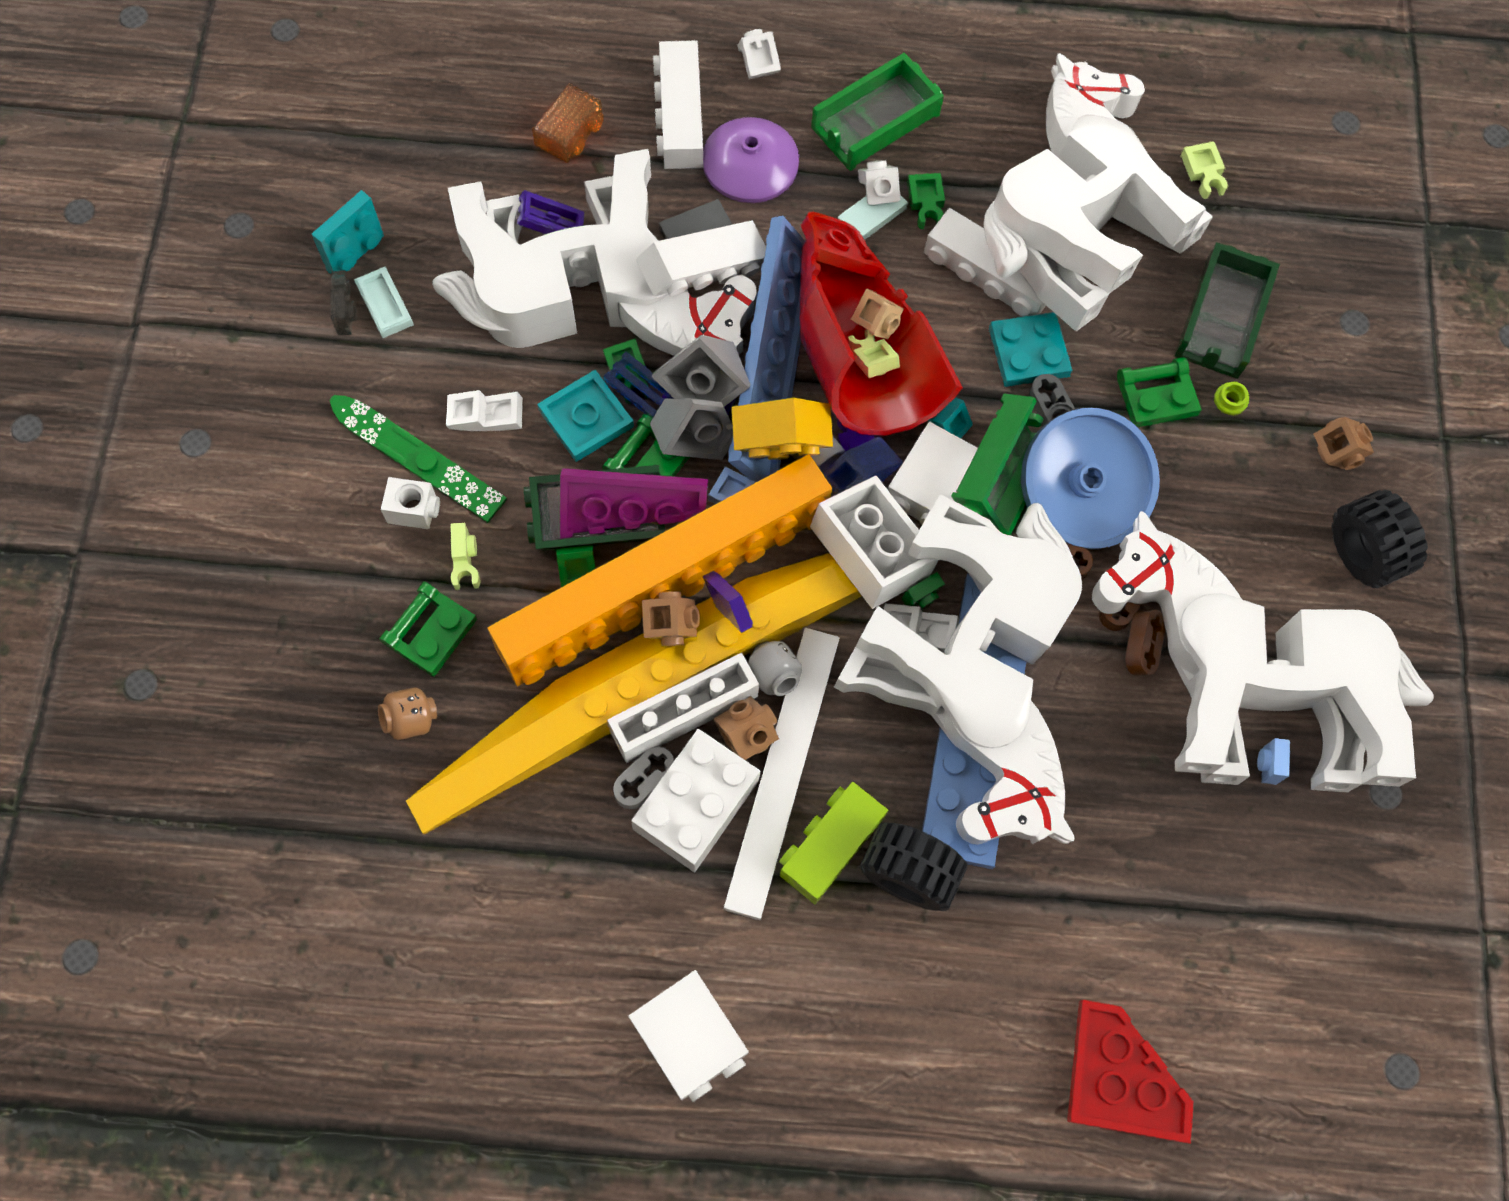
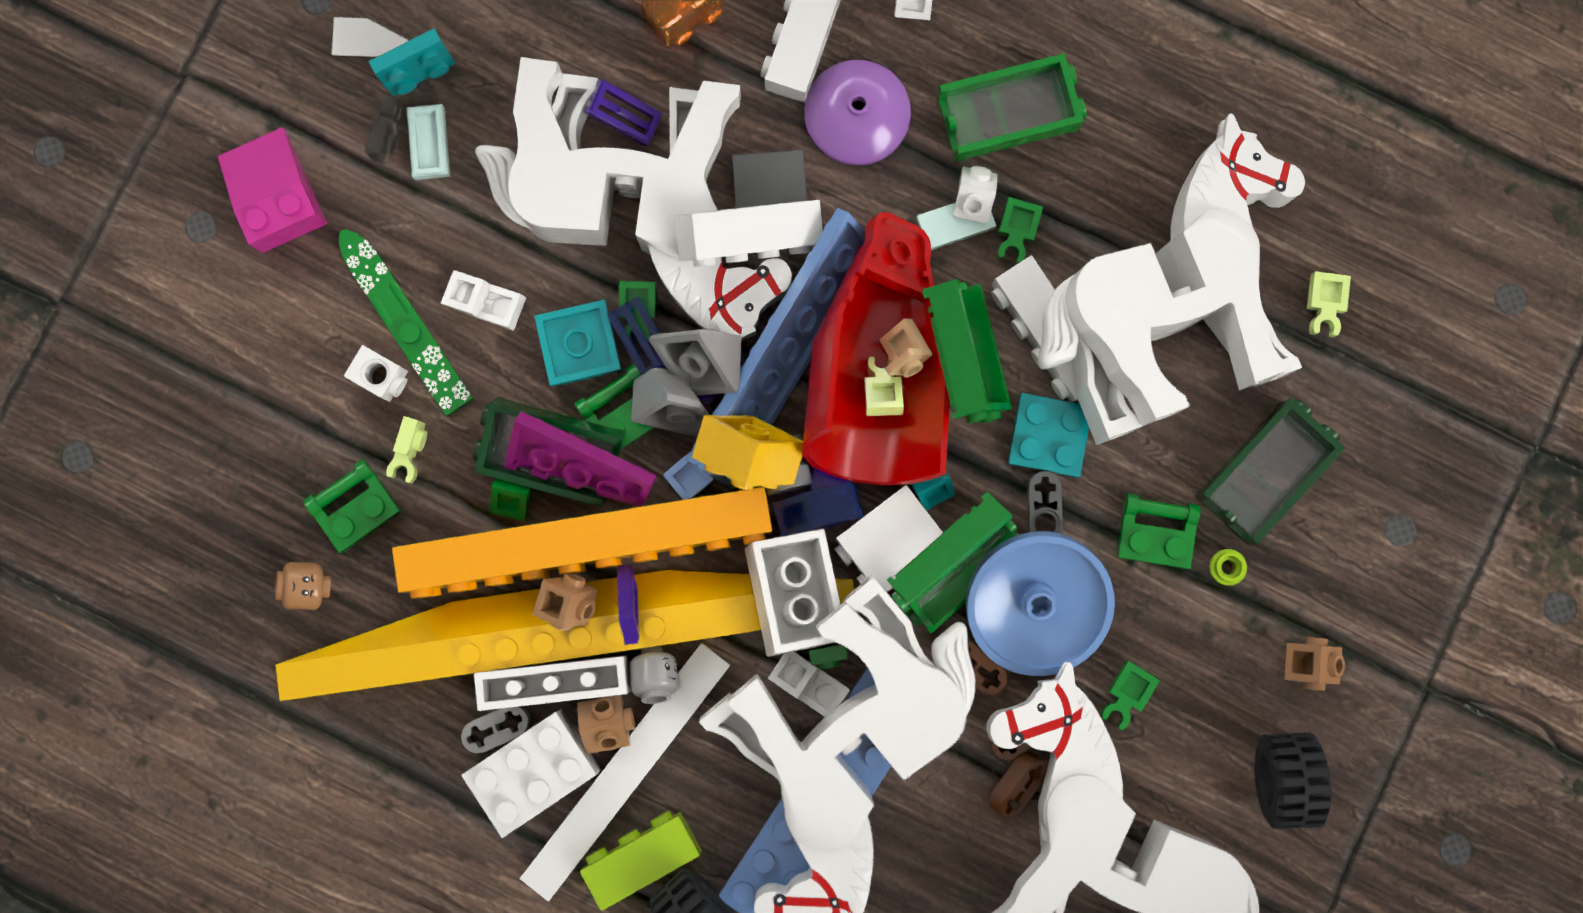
camera: 25 degrees right, 15 degrees up
(254, 387) = (270, 191): none -> dark pink slope
(288, 242) = (362, 38): none -> white sticker
(931, 296) = (968, 351): none -> green door
(1203, 526) = (1132, 689): none -> green plate

